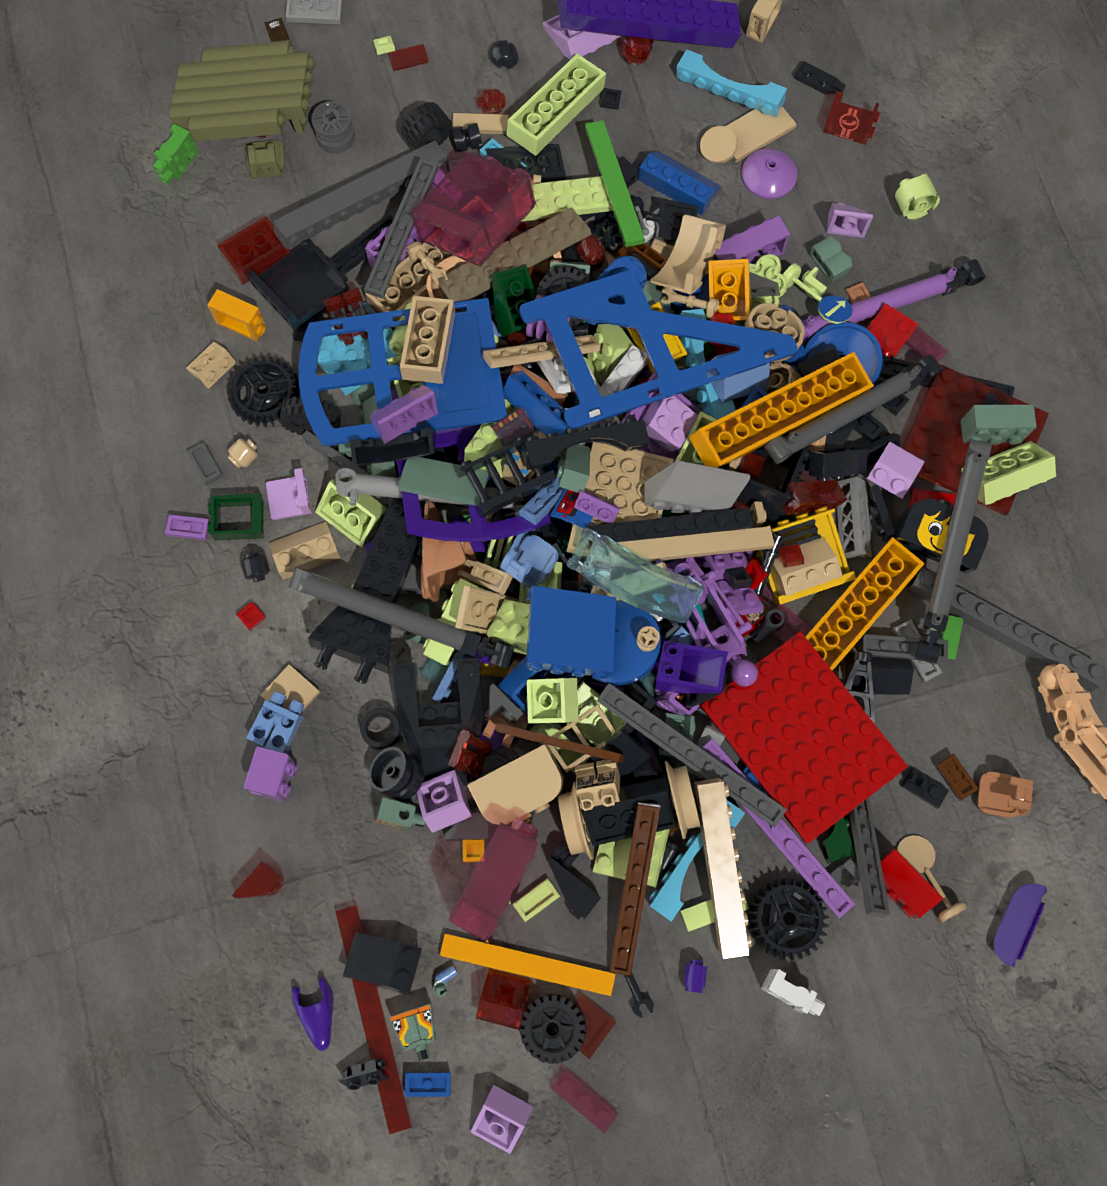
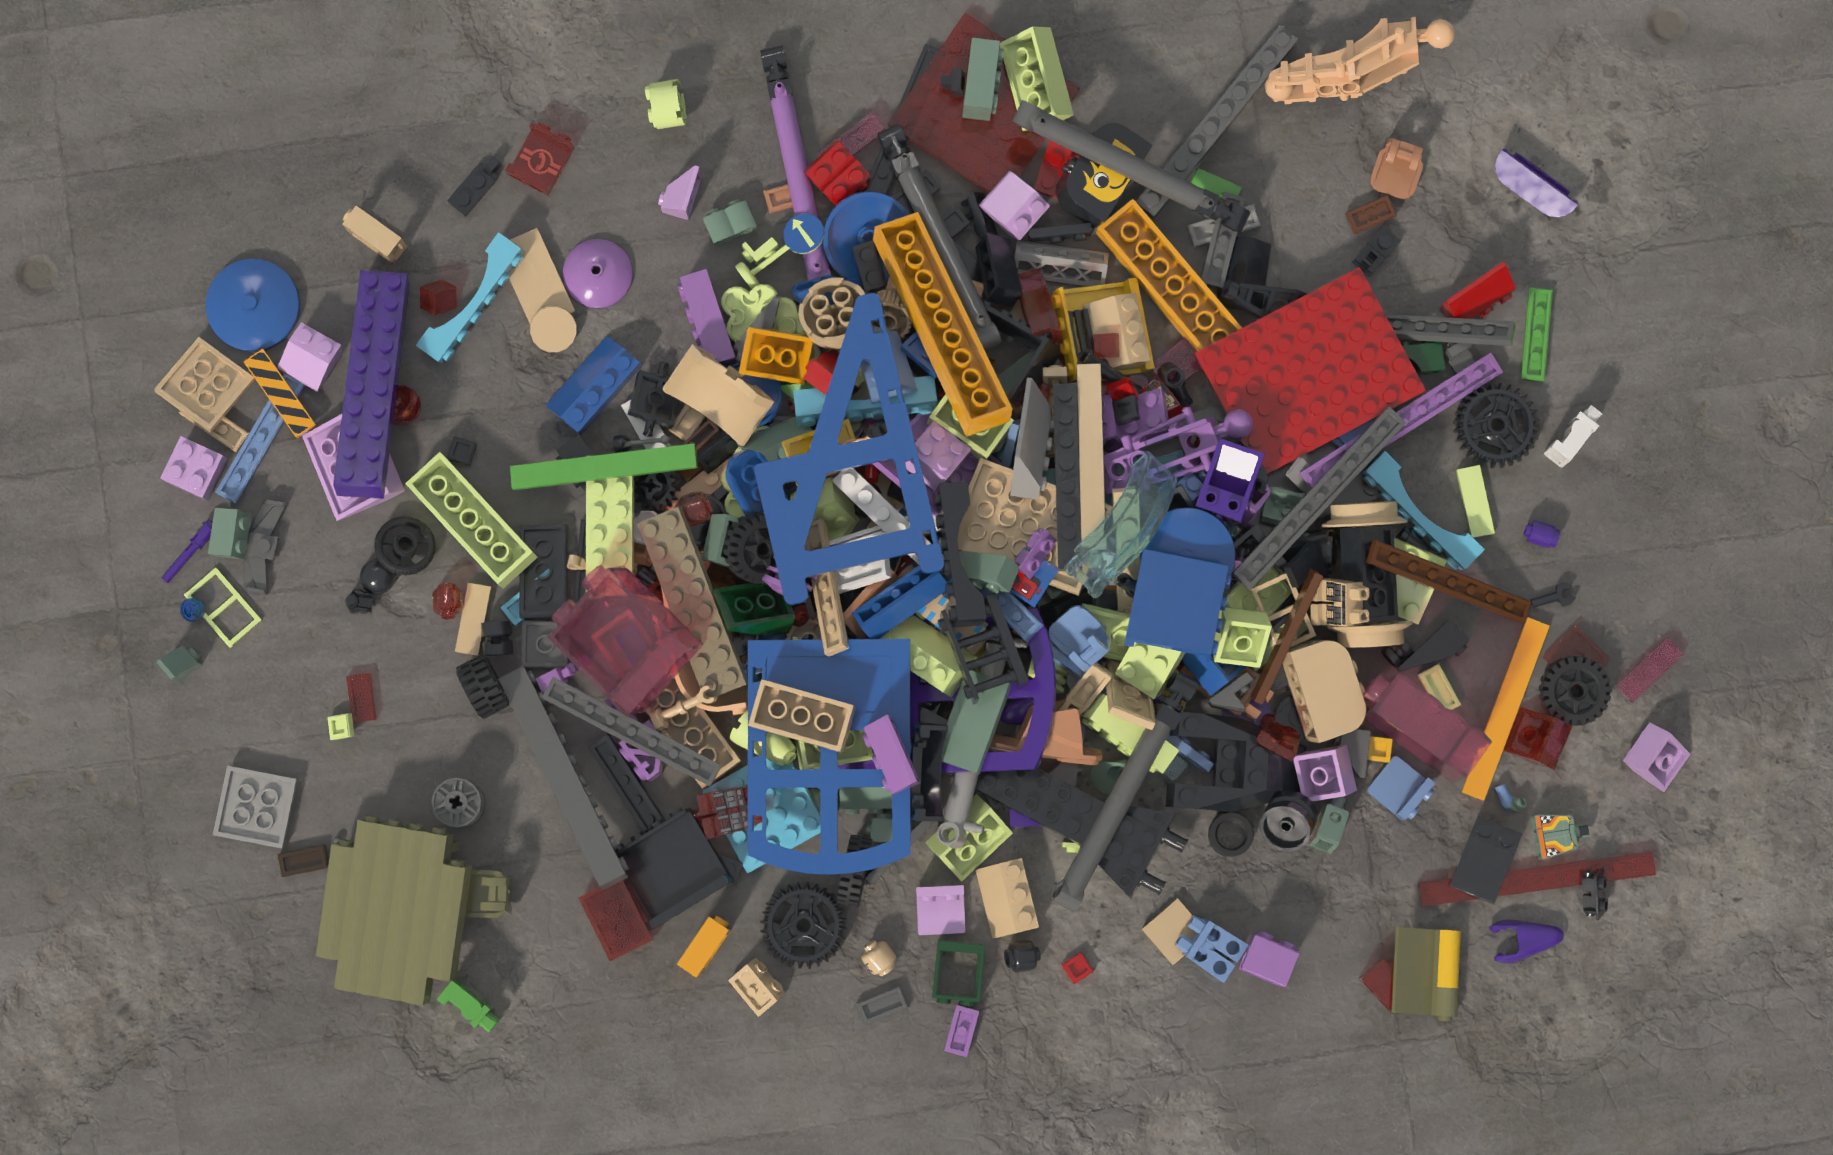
camera: 80 degrees left, 10 degrees up
(273, 920) = (1426, 972): none -> olive door
(428, 1084) = (1612, 829): blue plate -> none
(440, 875) = (1401, 788): none -> medium blue bracket
(481, 44) = (359, 601): none -> black arm
(513, 426) = (921, 633): clear purple piece -> none
(529, 73) = (386, 537): none -> black wheel
(649, 634) = (1197, 518): tan wheel -> none
(711, 306) = (768, 425): tan piece -> none
(721, 868) = (1438, 486): brick -> none
(727, 63) = (438, 297): none -> clear red panel
(880, 946) = (1536, 334): none -> bright green tile
(921, 856) = (1448, 275): tan piece -> none

